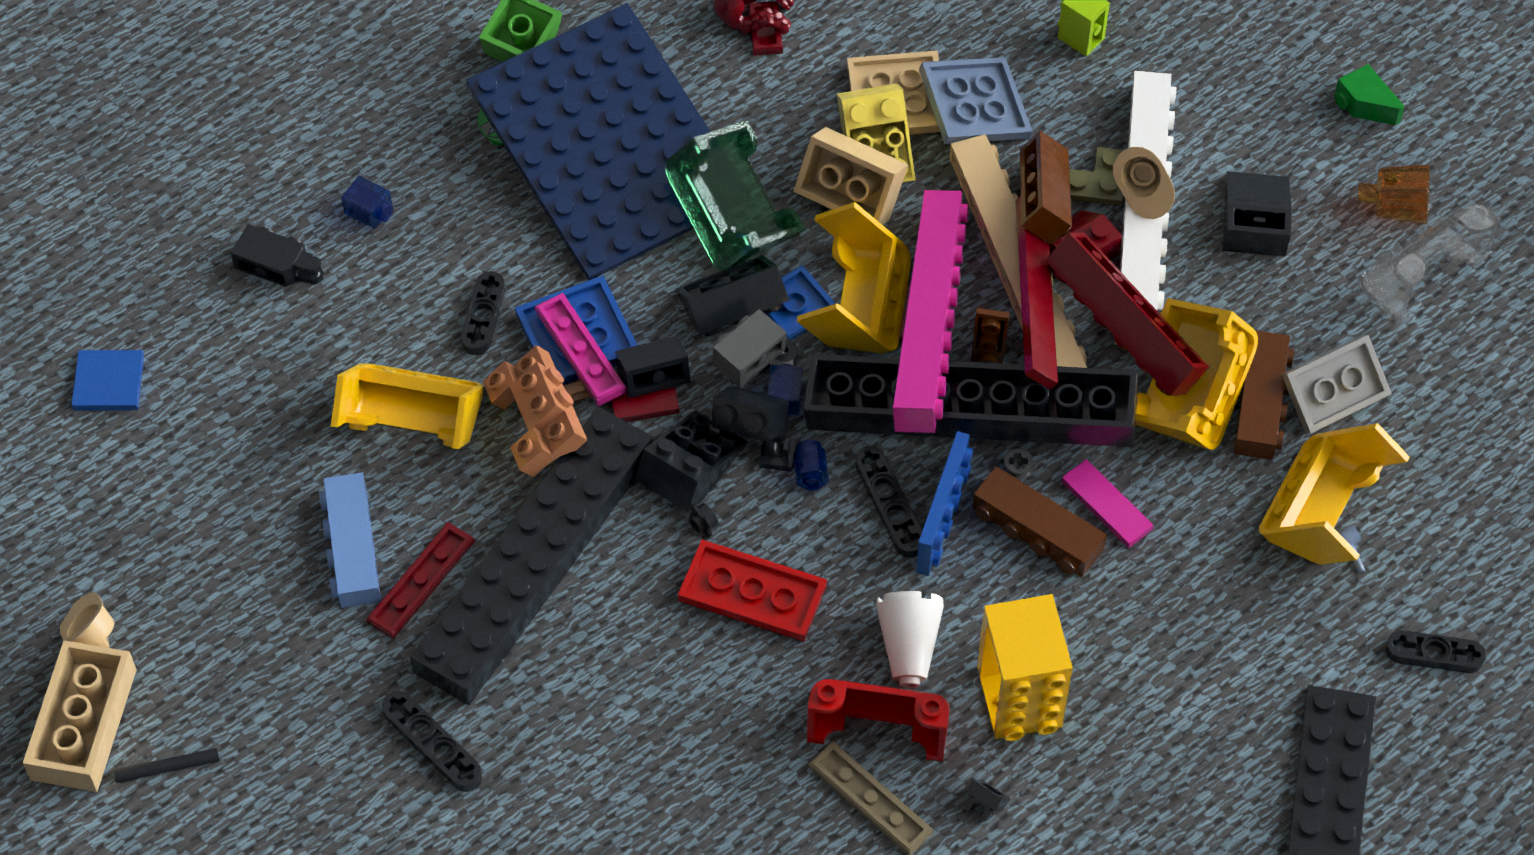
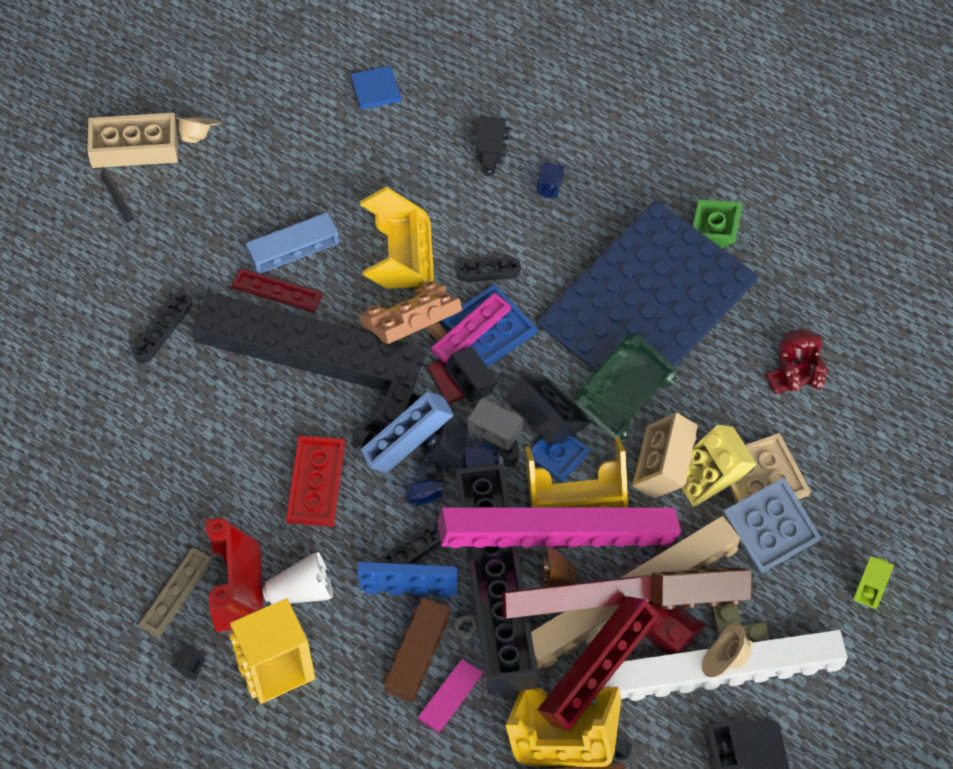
camera: 75 degrees right, 0 degrees up
(735, 448) = (407, 432): none -> medium blue brick

